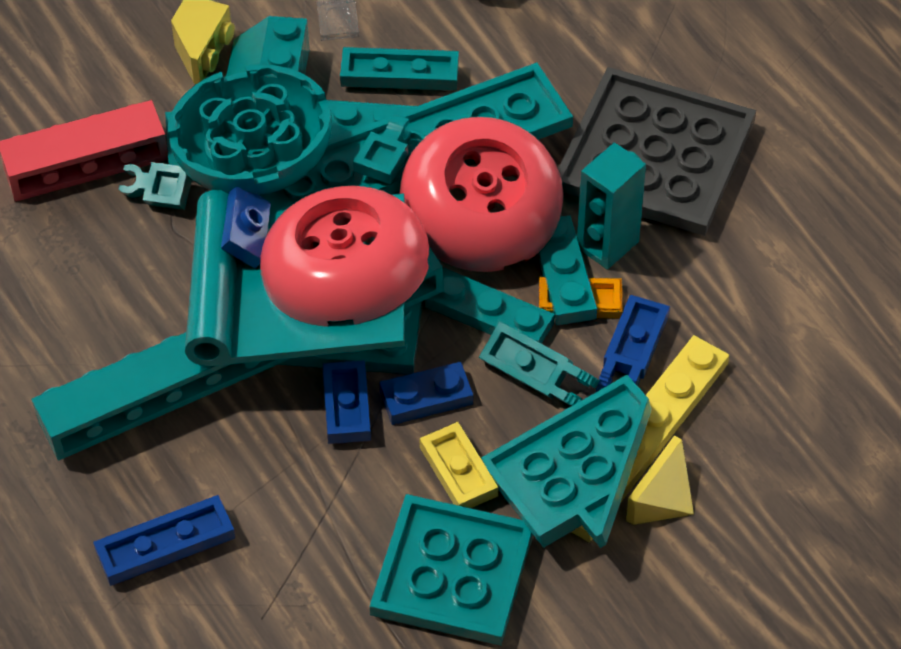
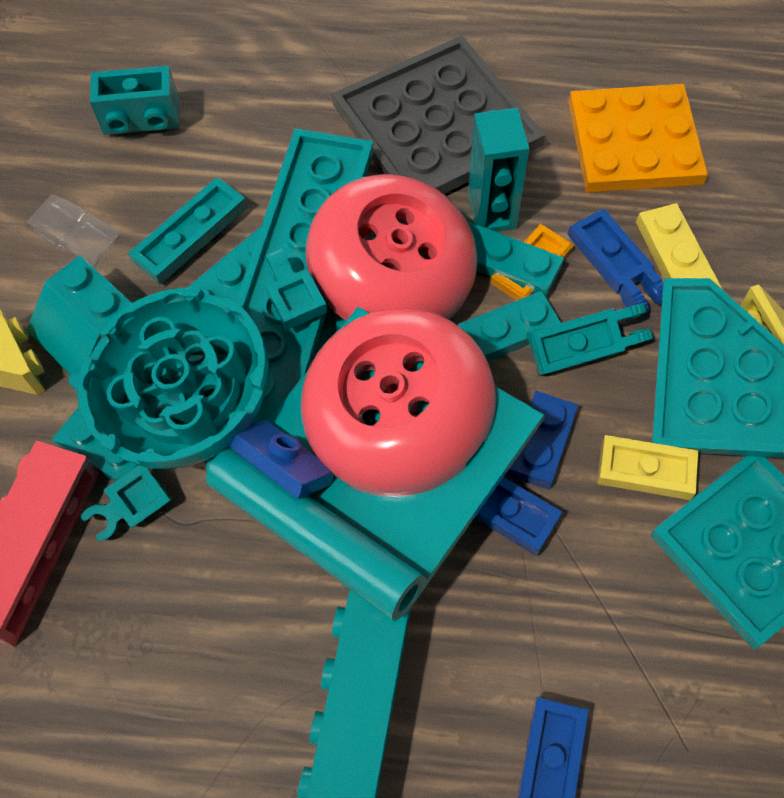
camera: 50 degrees left, 10 degrees up
(778, 293) = (636, 138): none -> light orange plate

